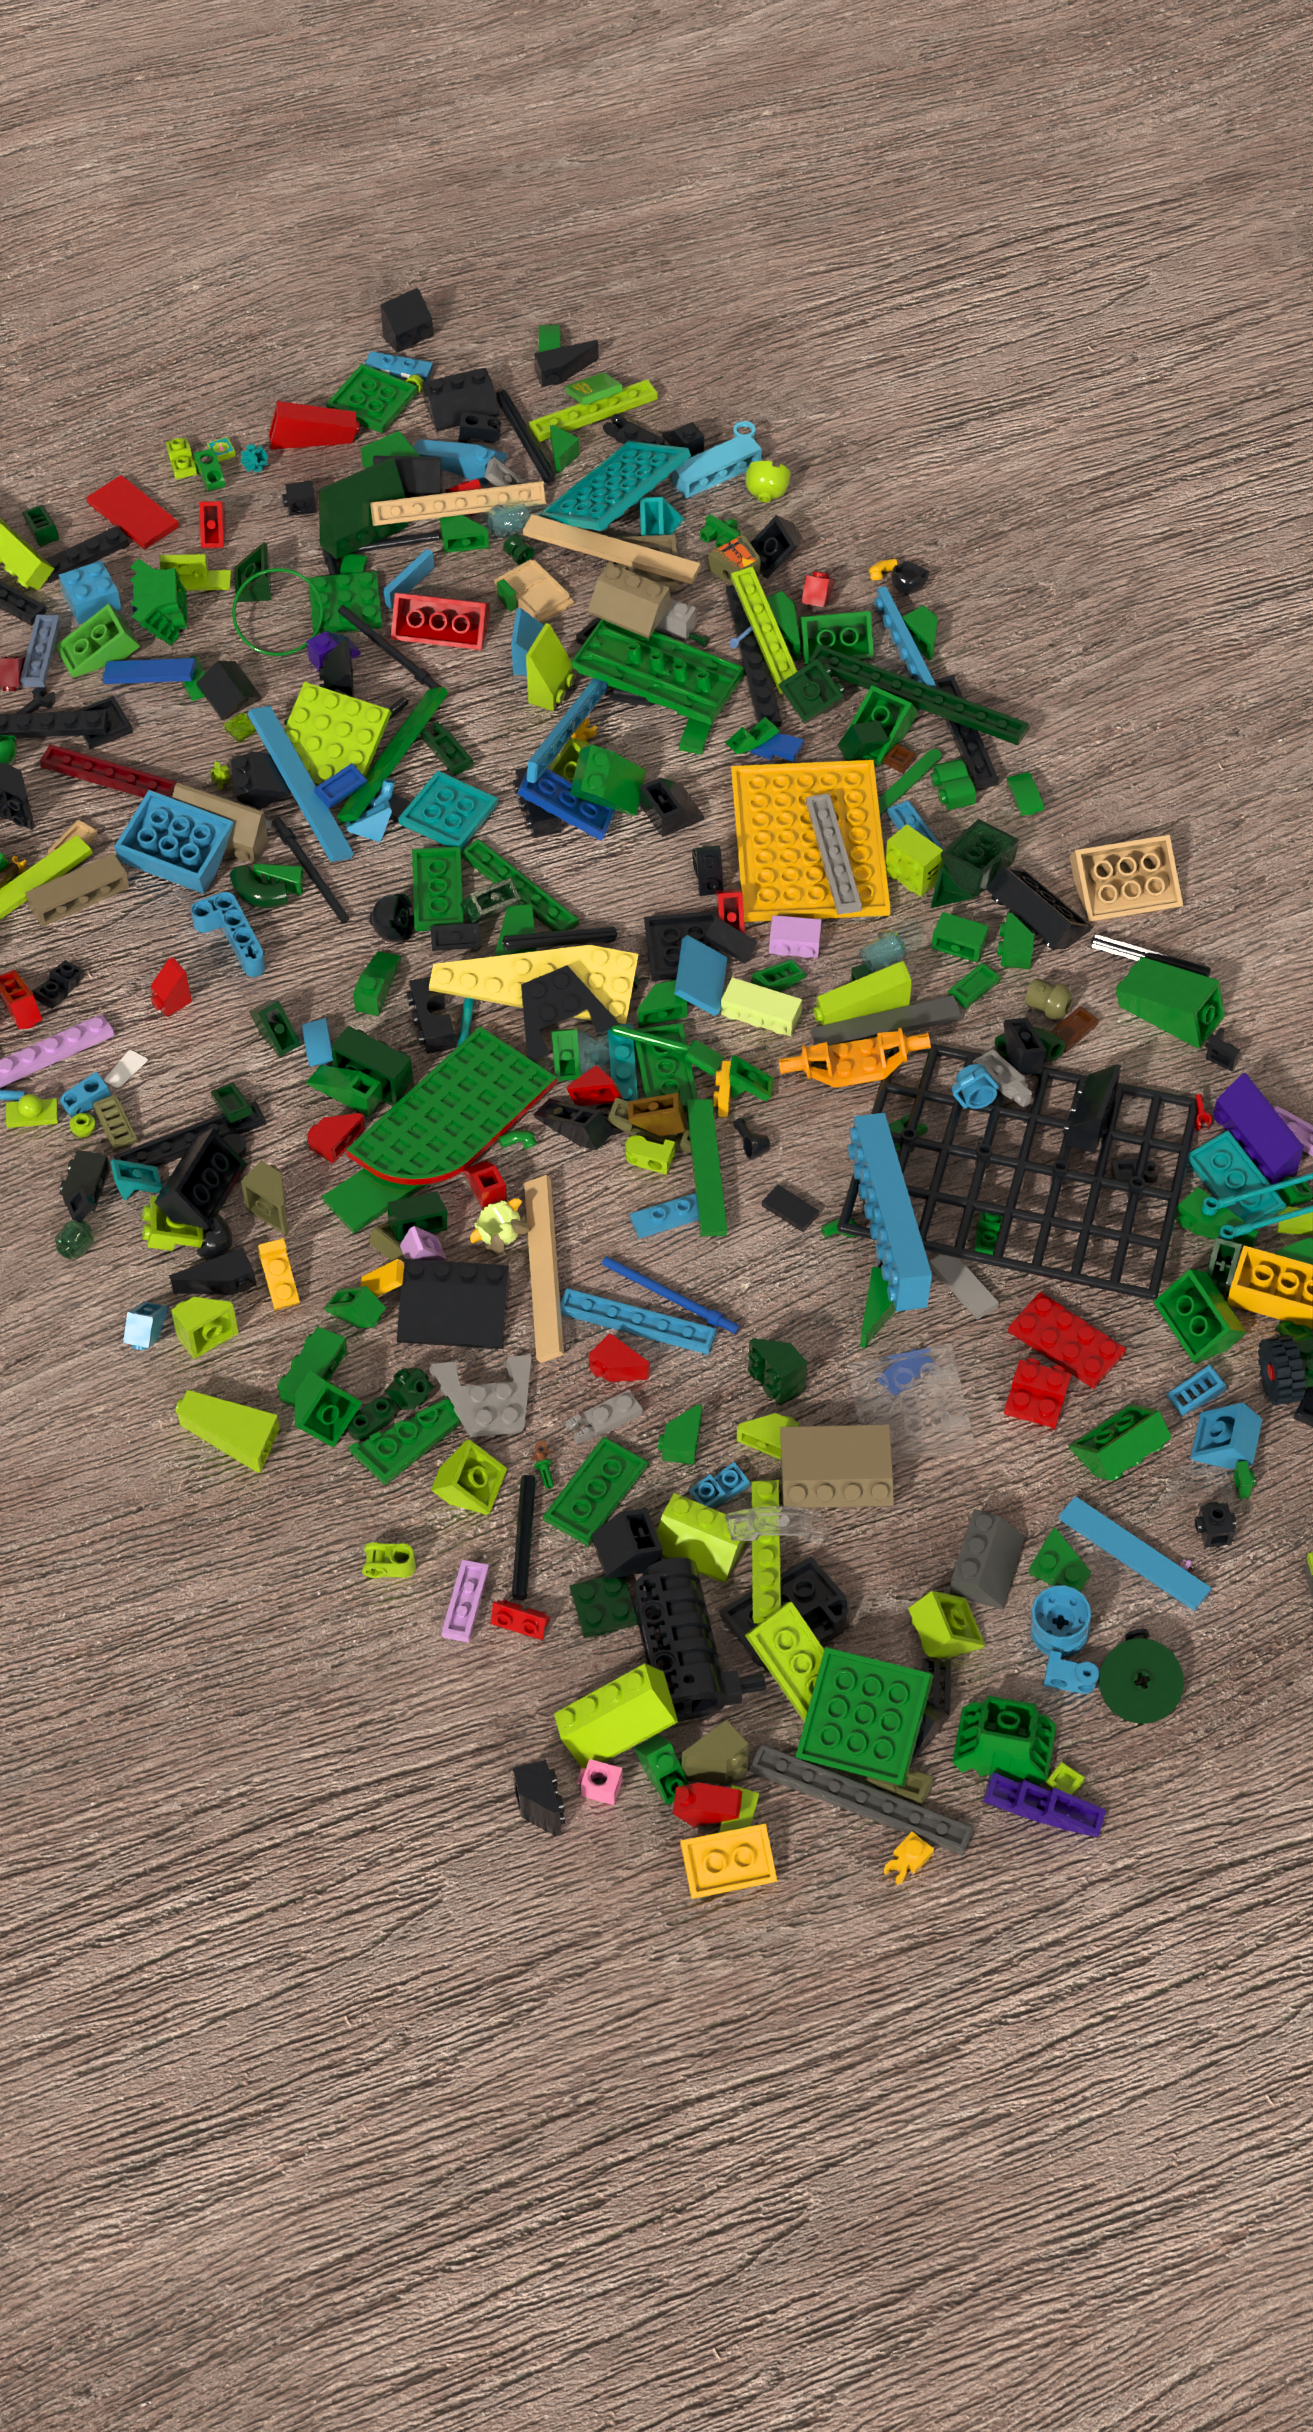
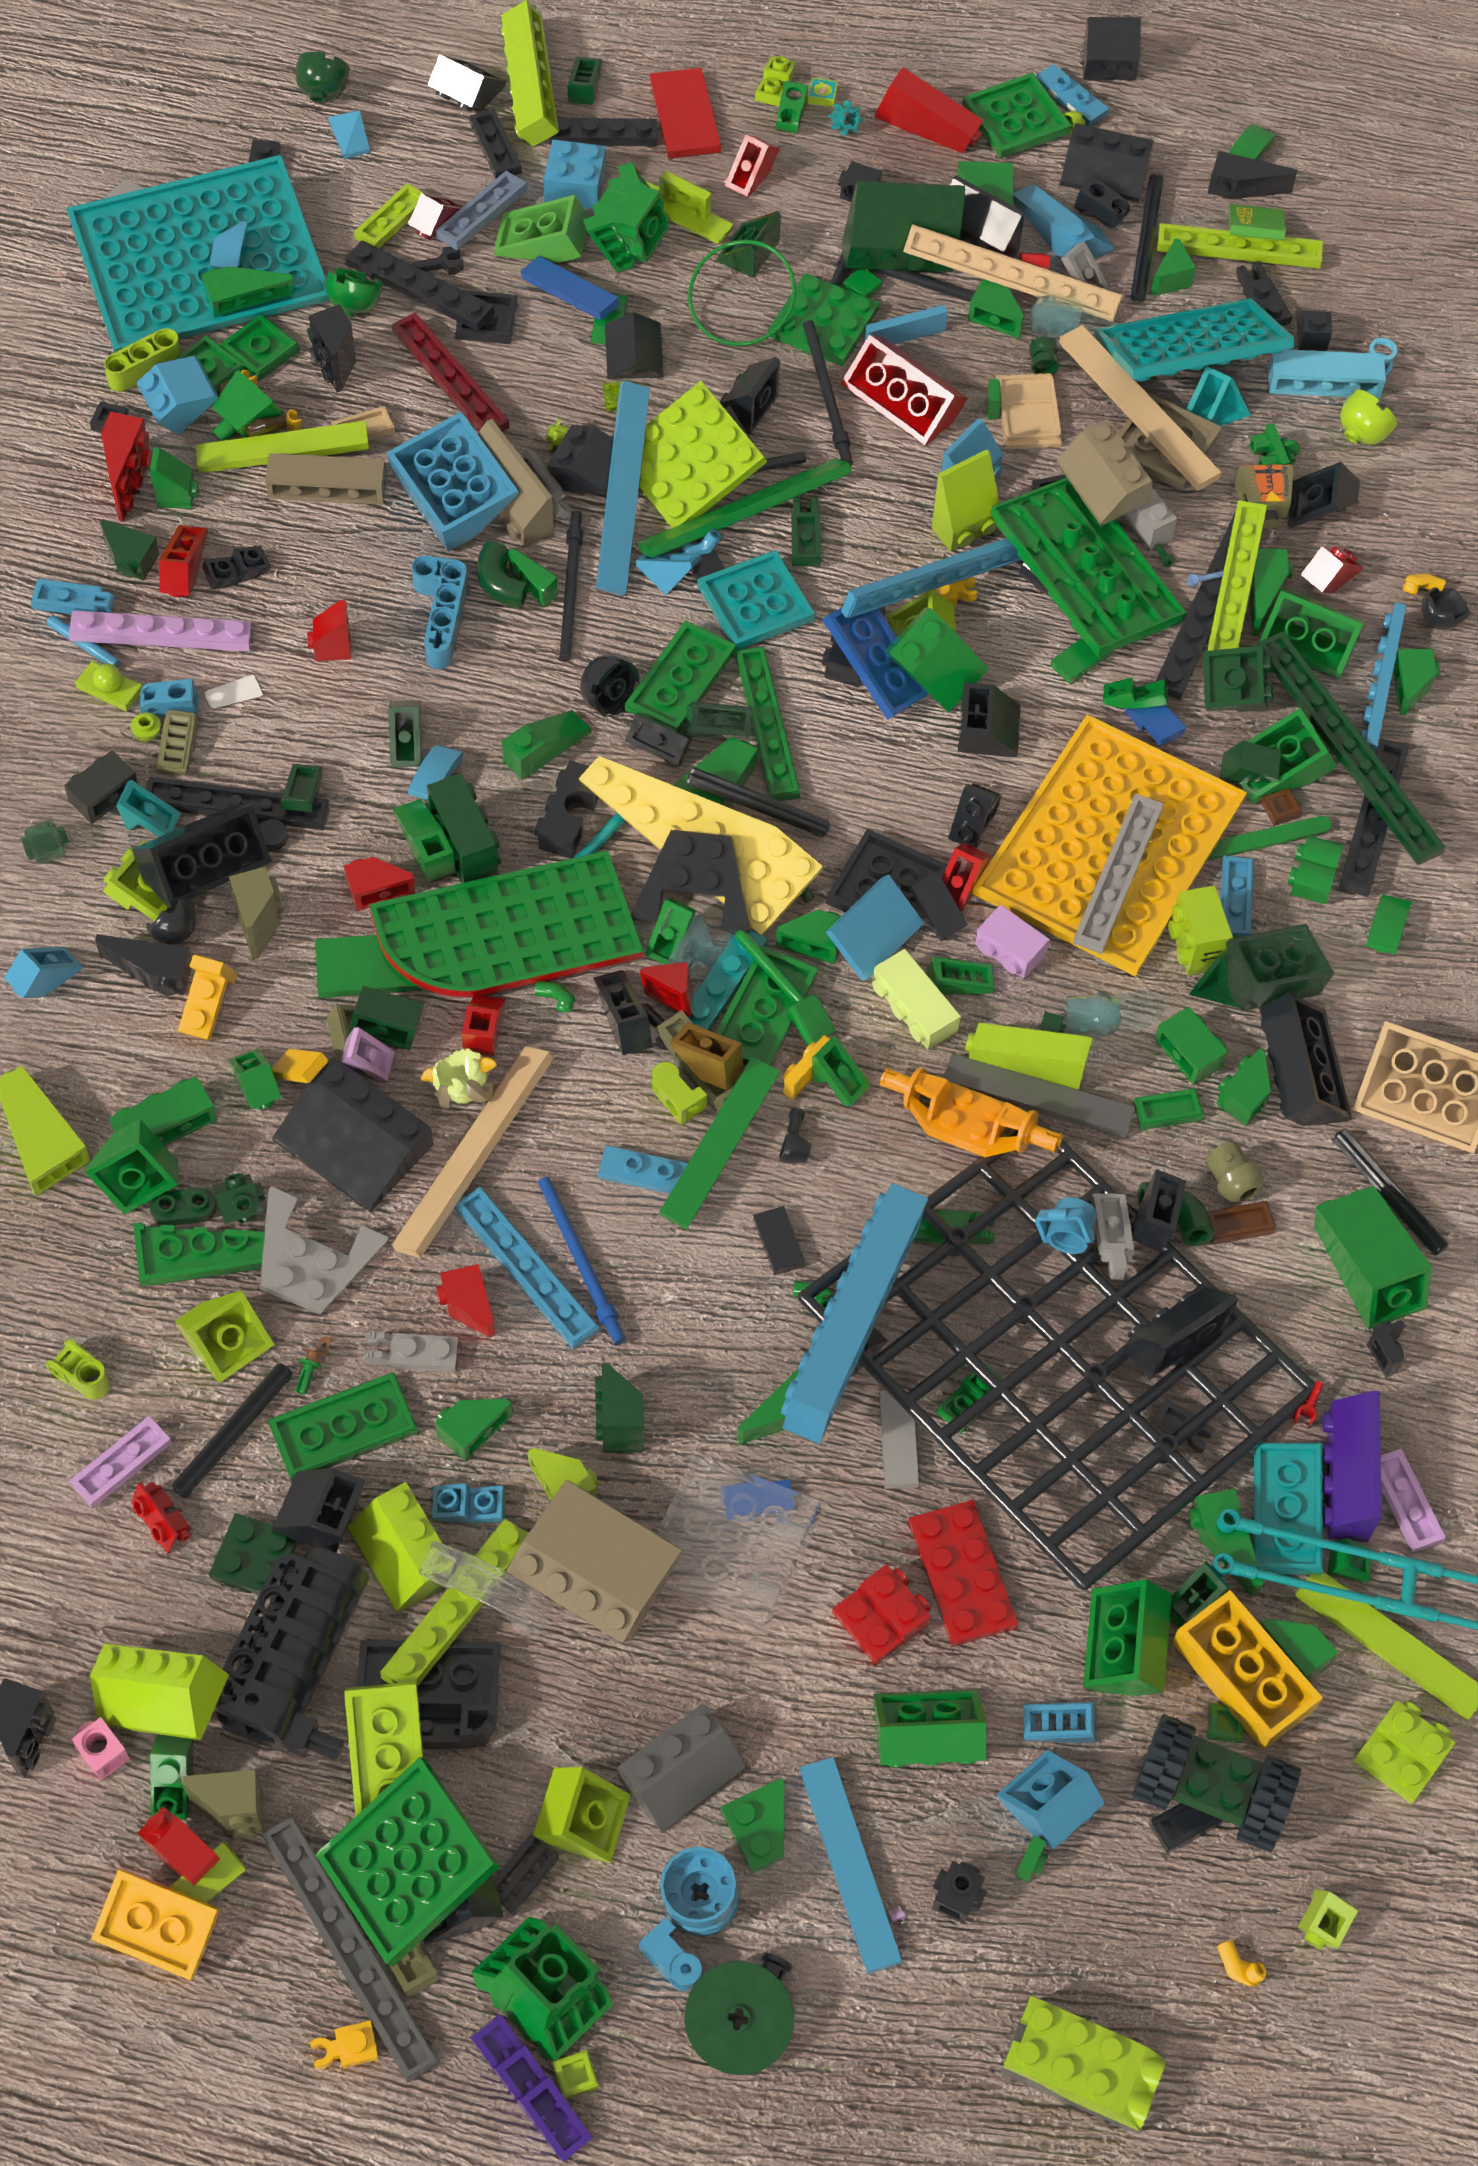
camera: 30 degrees right, 5 degrees up
(80, 1203) = (70, 808): black plate -> none
(204, 1324) = (88, 1006): lime slope -> none
(324, 643) = (762, 349): dark purple slope -> none
(340, 786) = (661, 512): blue tile -> none

